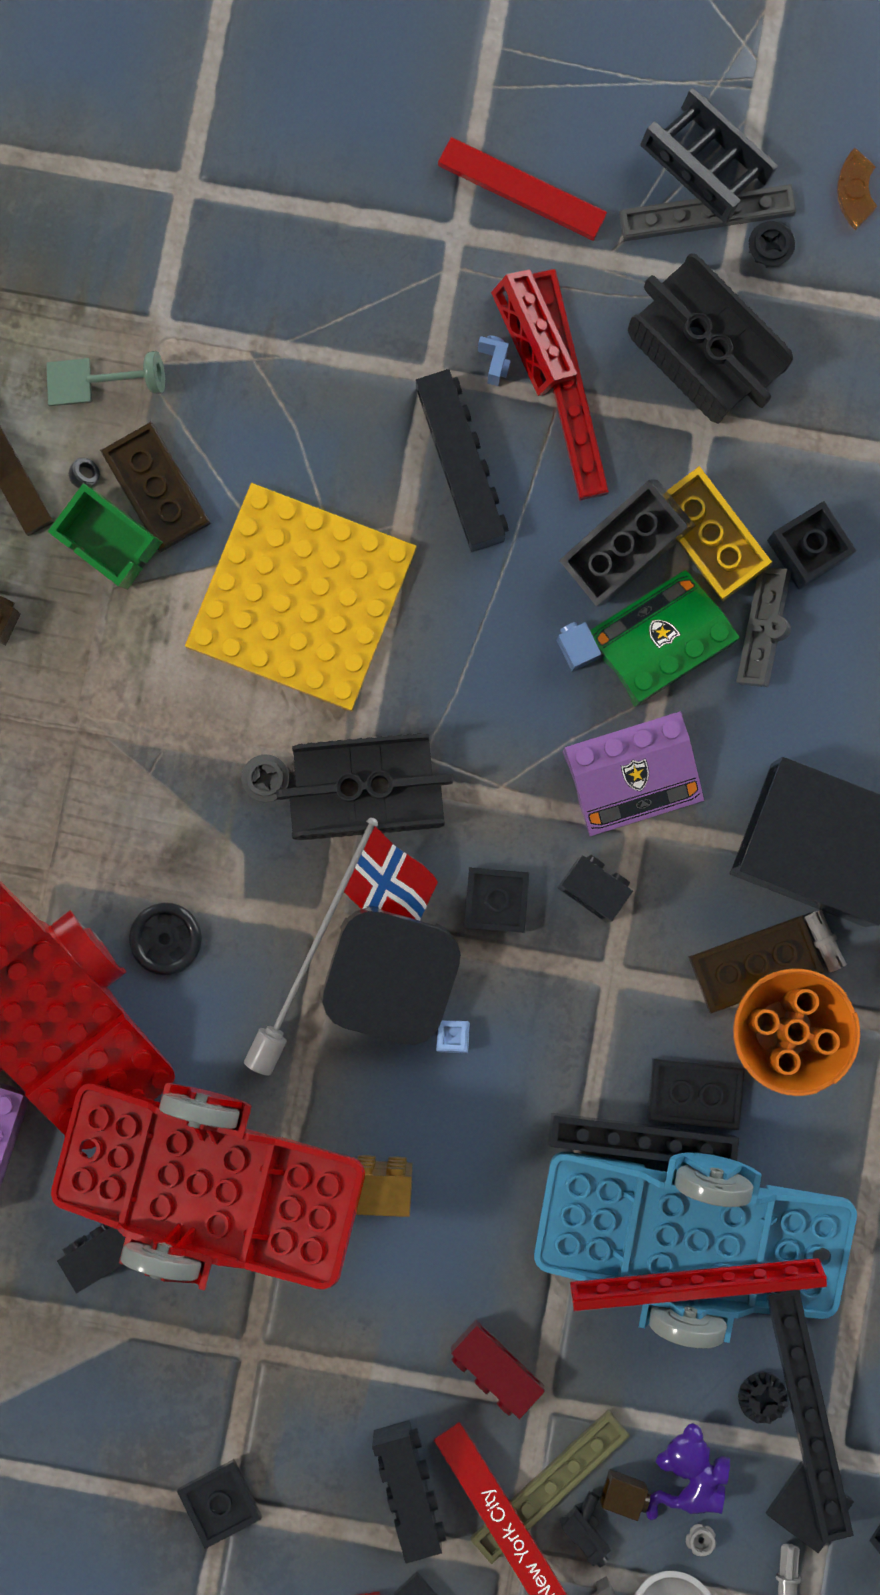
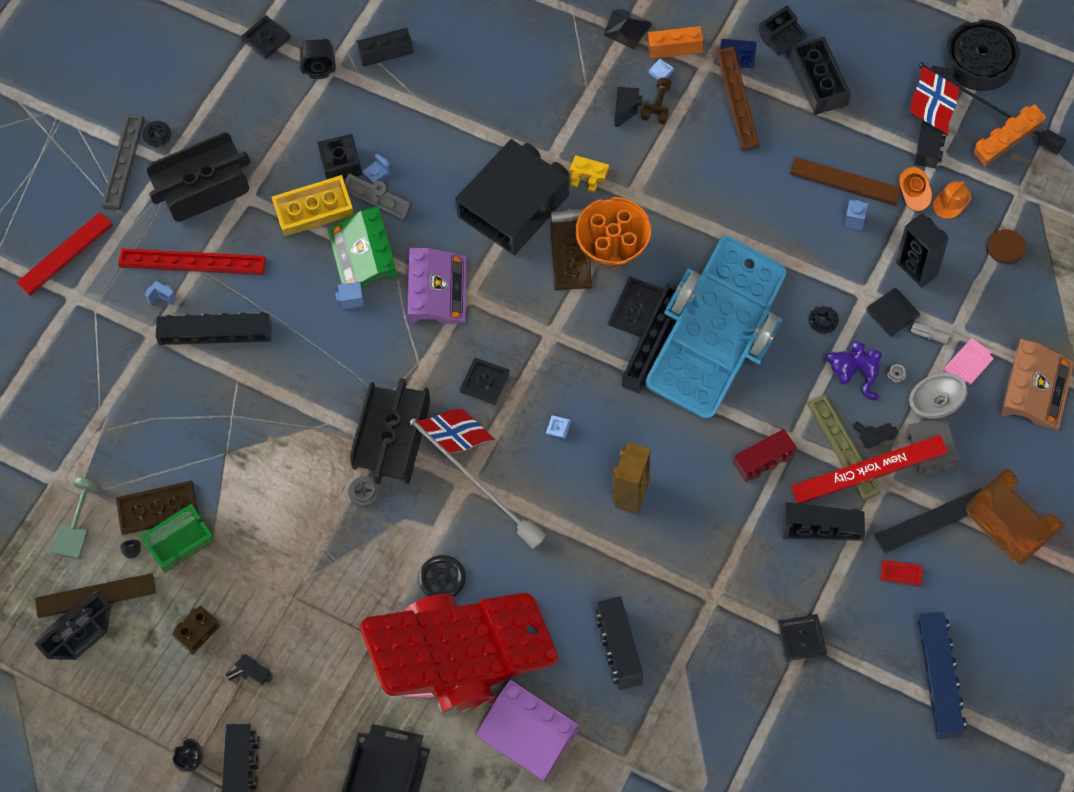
camera: 65 degrees left, 20 degrees down
(205, 1189) = (594, 566): red piece -> none
(301, 597) = (259, 442): yellow plate -> none
(390, 976) = (509, 445): black tile -> none
(535, 328) = (152, 265): red fence -> none
(596, 888) = (496, 321): black brick -> none
(624, 1495) = (858, 406): dark brown brick -> none
(627, 542) = (300, 247): black brick -> none
(690, 172) = (96, 160): black fence -> none
(697, 1284) = (742, 326): red tile -> none
(809, 1415) = (836, 292): black plate -> none
(812, 610) = (378, 170): none -> medium blue bracket
(854, 190) = (143, 85): clear orange tile -> none

